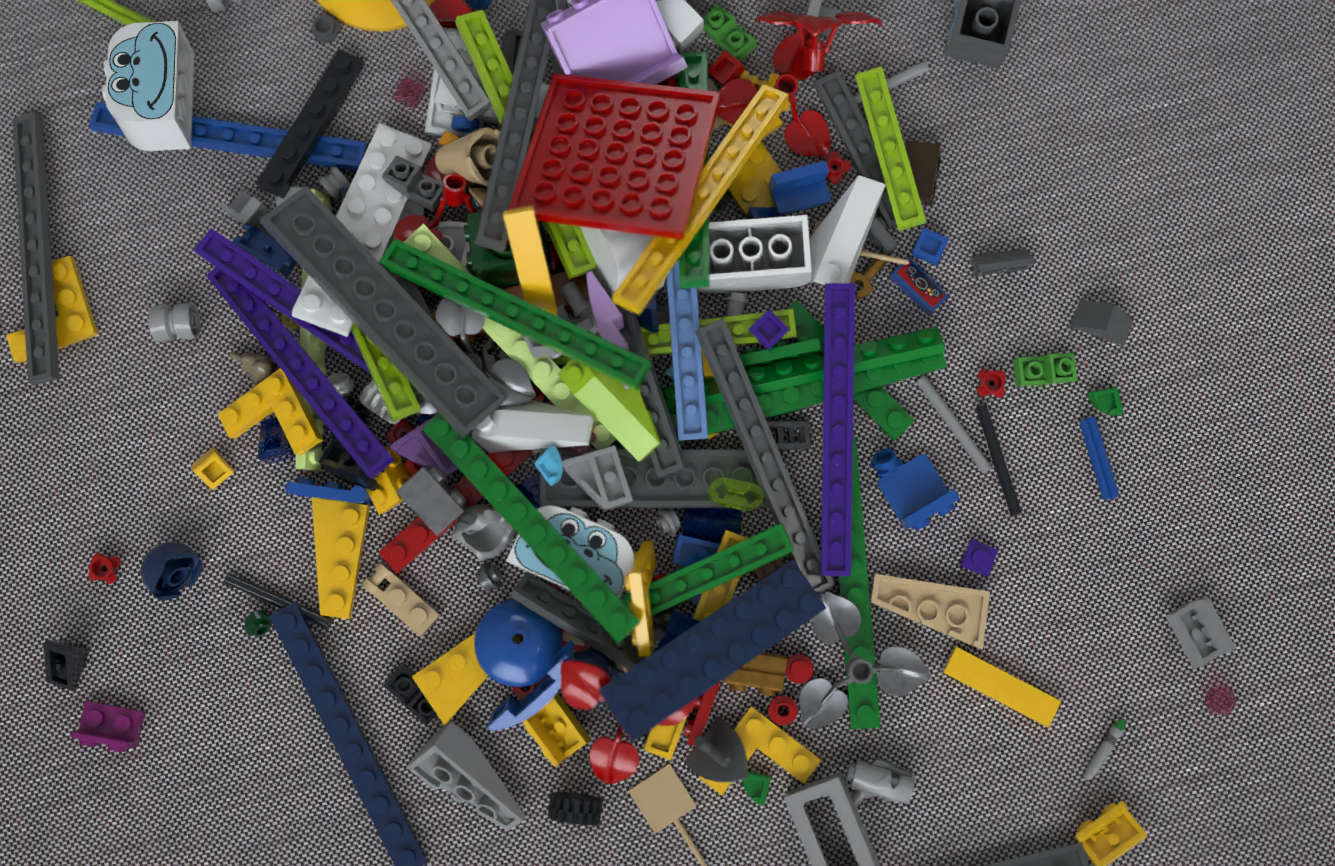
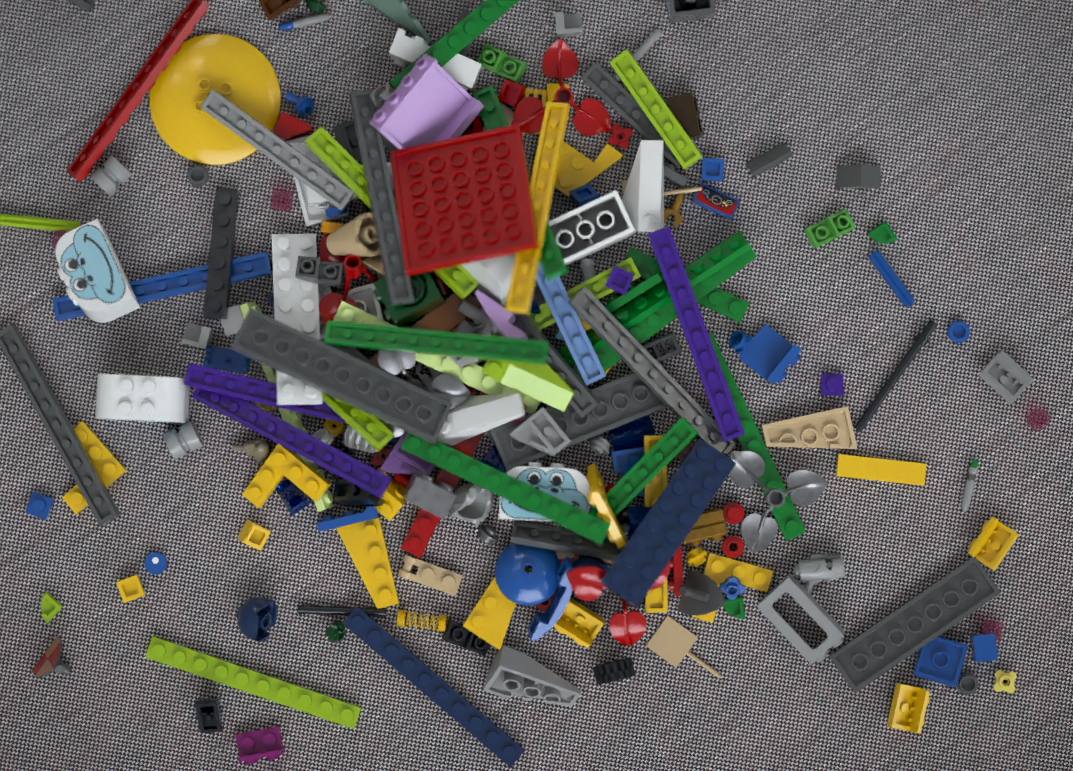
camera: 20 degrees left, 5 degrees up
(38, 474) = (130, 588): none -> yellow plate
(82, 456) = (155, 563): none -> blue tile
(96, 565) = (202, 632): red plate -> none
(136, 646) = (253, 682): none -> lime plate
(144, 253) = (142, 398): none -> white brick
(334, 183) = (257, 291): light grey wheel -> none
(343, 639) = (441, 618): none -> yellow piece
(358, 382) = (334, 431): none -> yellow plate
(530, 258) = (434, 300): yellow tile -> none
(550, 465) = (503, 439): medium azure tile -> none
(733, 705) = (696, 556): none -> yellow plate
(734, 500) = (641, 401): clear neon green beam -> none
(767, 756) = (736, 584): none -> blue plate
(800, 188) = (602, 165): blue panel -> none
(815, 50) = (571, 47): red plant -> none
(954, 424) = (778, 294): light grey bar -> none
(997, 377) = (798, 248): red plate -> none
(998, 460) = (821, 309): black bar -> none
(1106, 548) = (919, 341): none -> black bar
(1157, 554) = (958, 331): none -> blue tile

